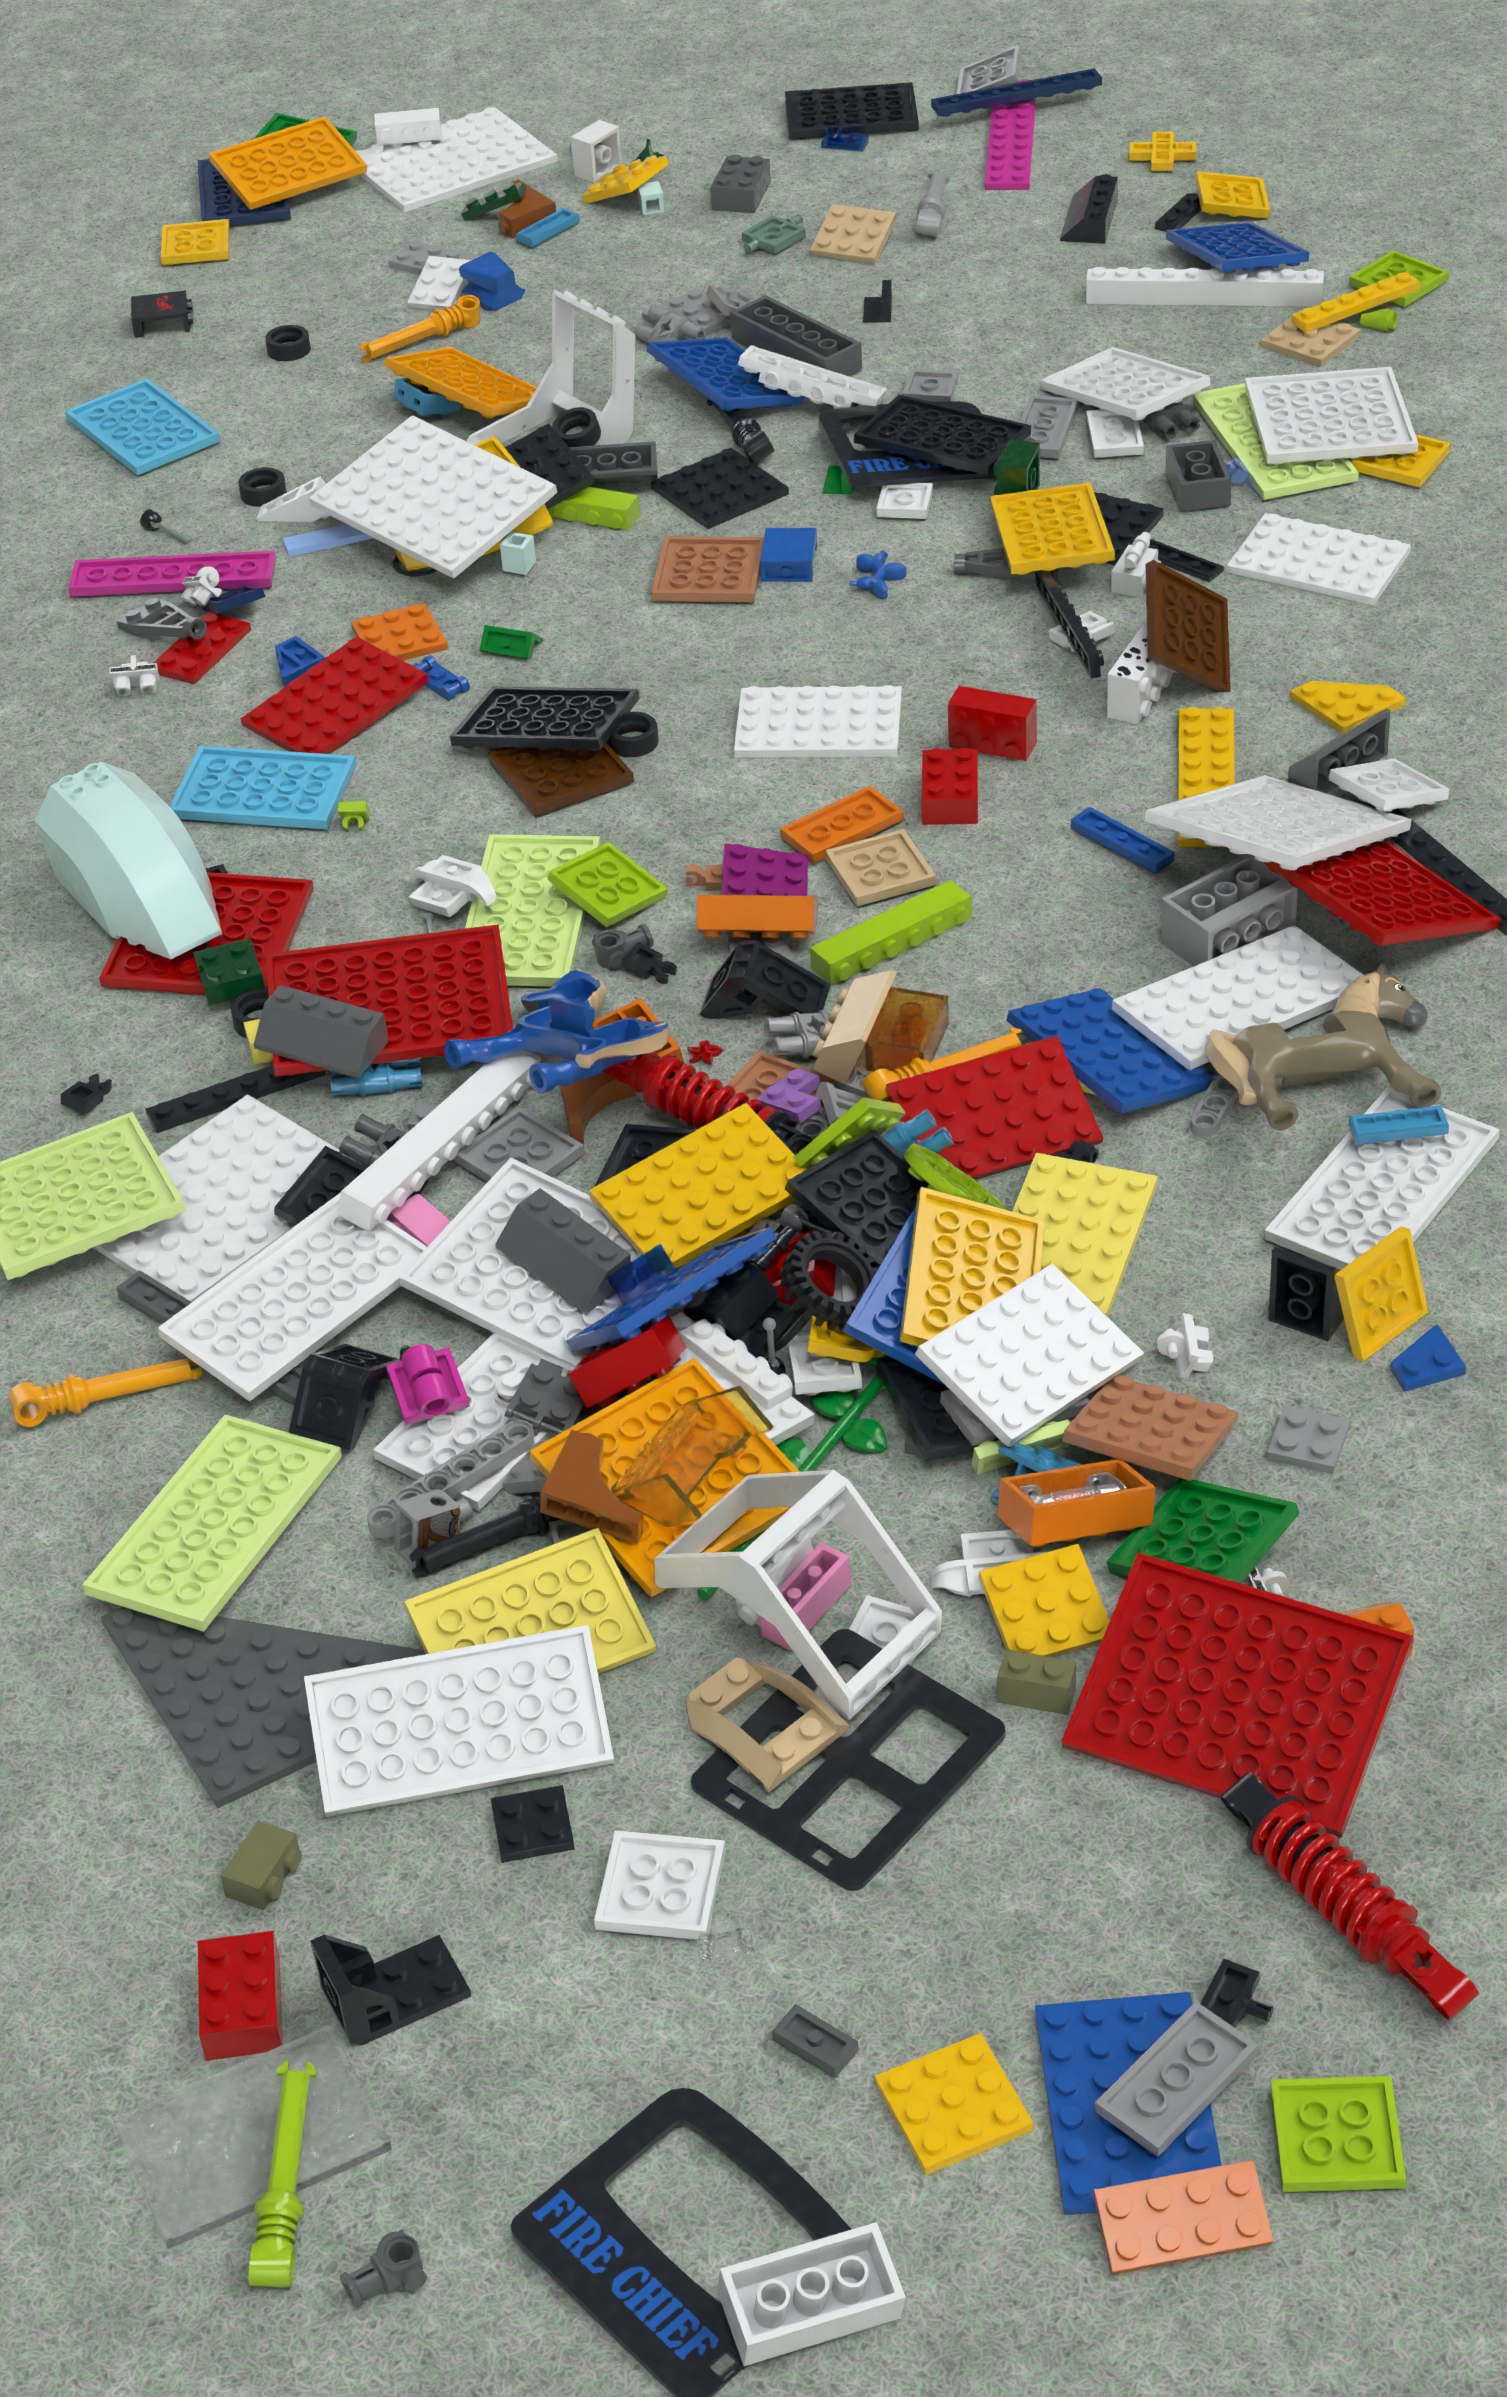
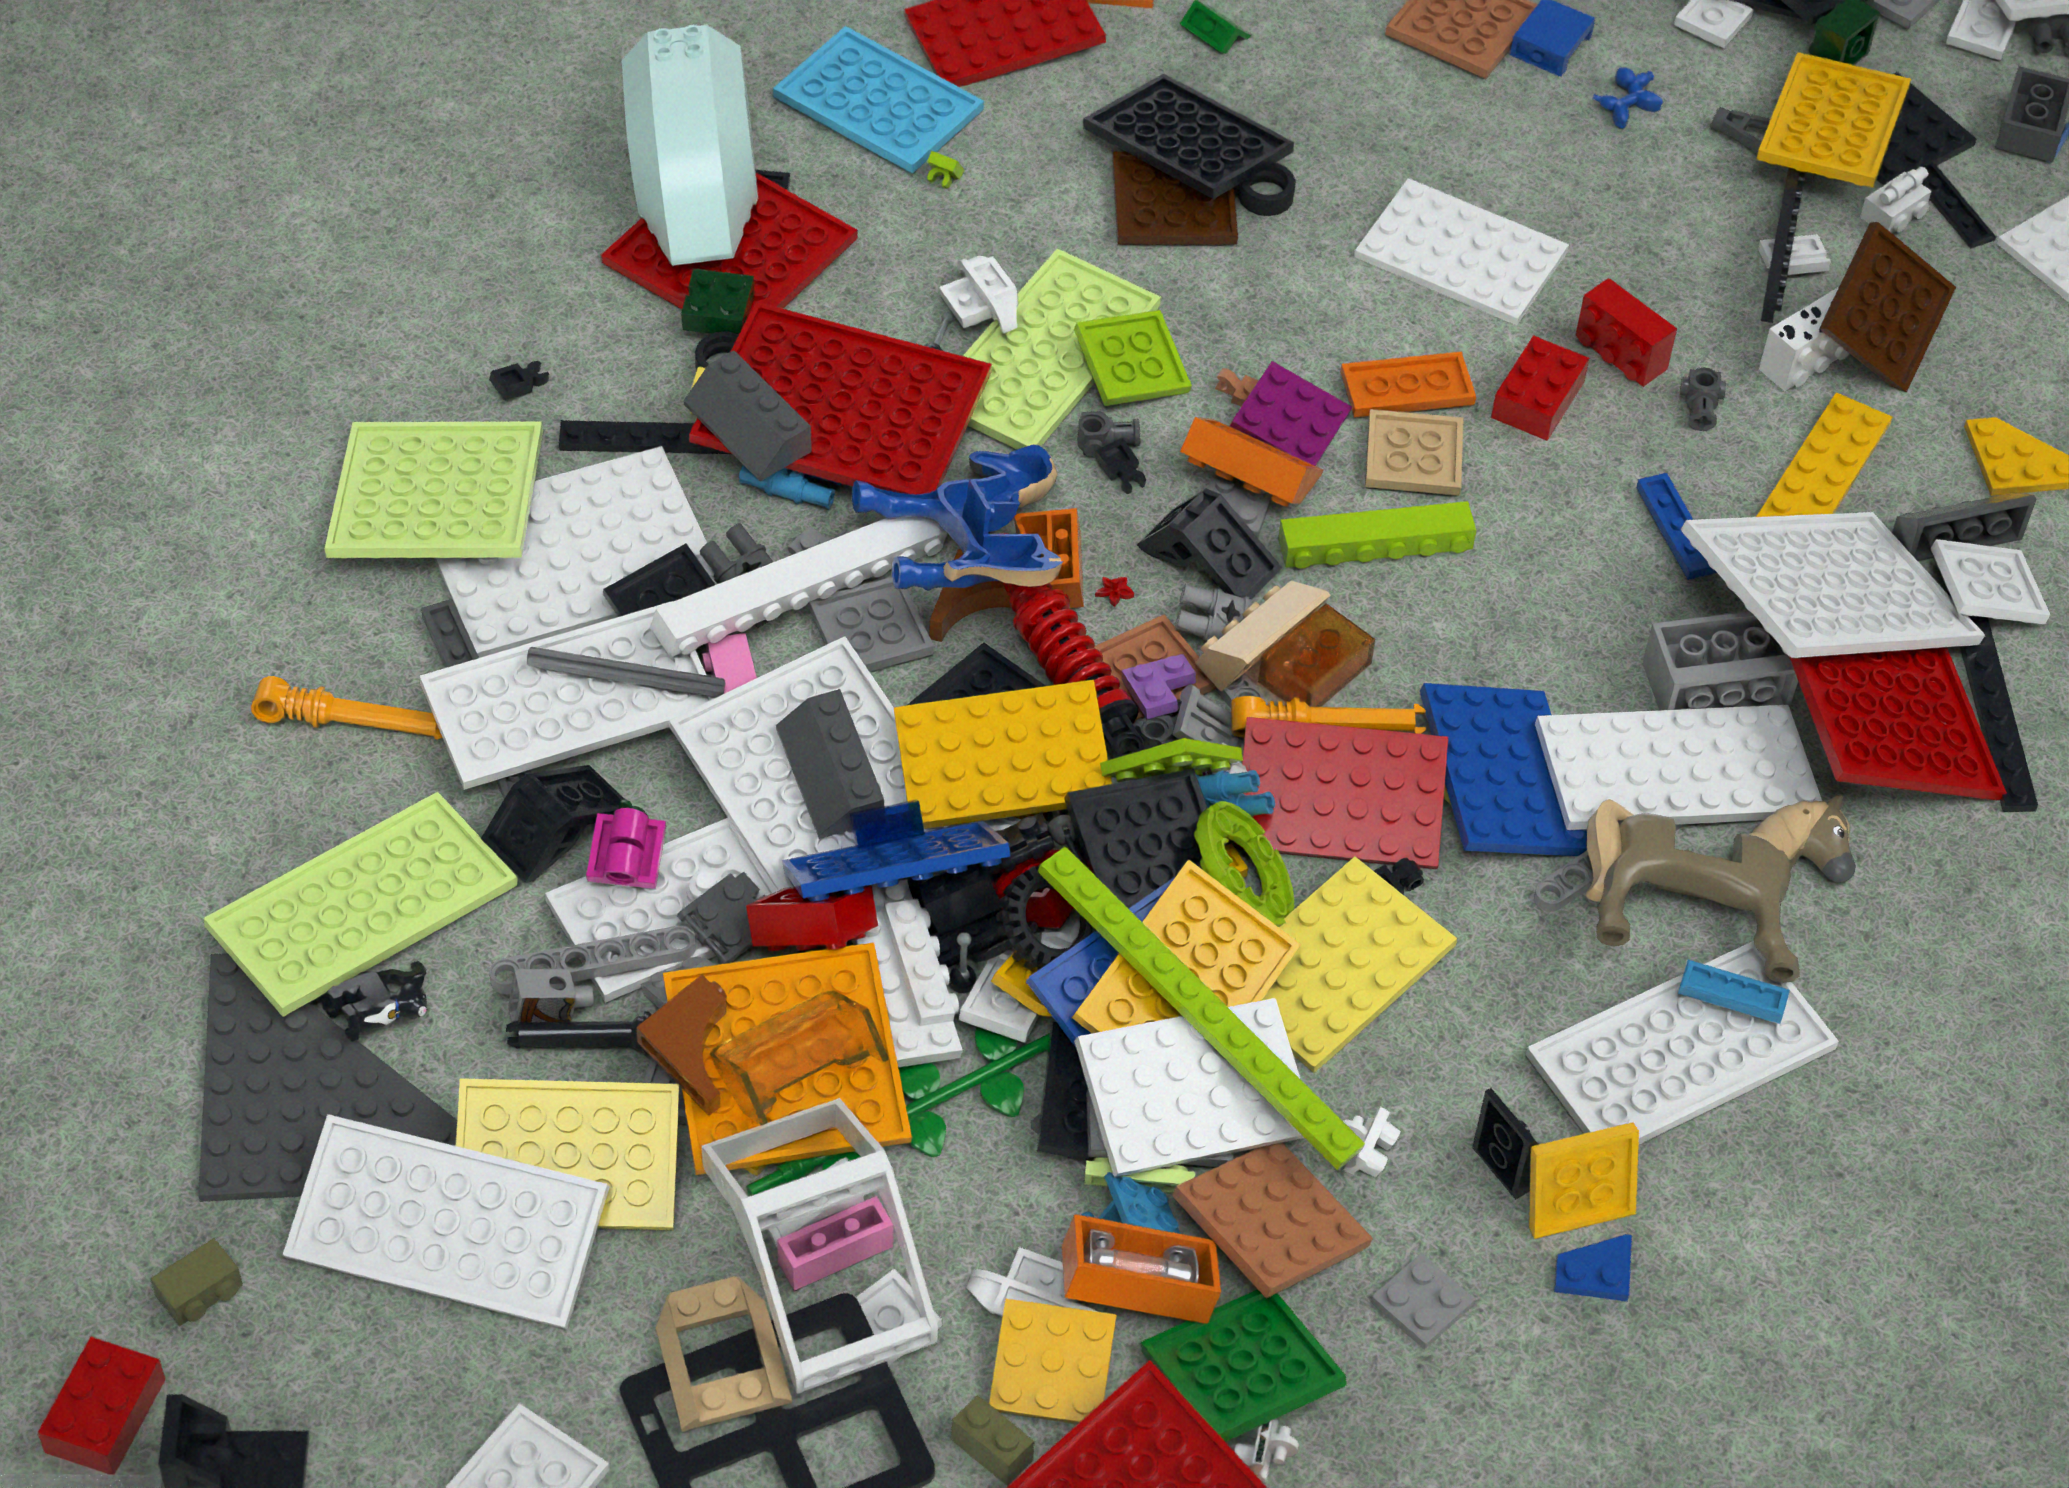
camera: 20 degrees right, 10 degrees up
(279, 1585) = (371, 1004): none -> black animal
(338, 1255) = (625, 672): none -> dark grey axle
(442, 680) = (1121, 41): blue plate -> none
(532, 1823) = (457, 1356): black plate -> none
(1002, 1287) = (1202, 1008): none -> lime plate
(1078, 745) = (1701, 393): none -> dark grey connector

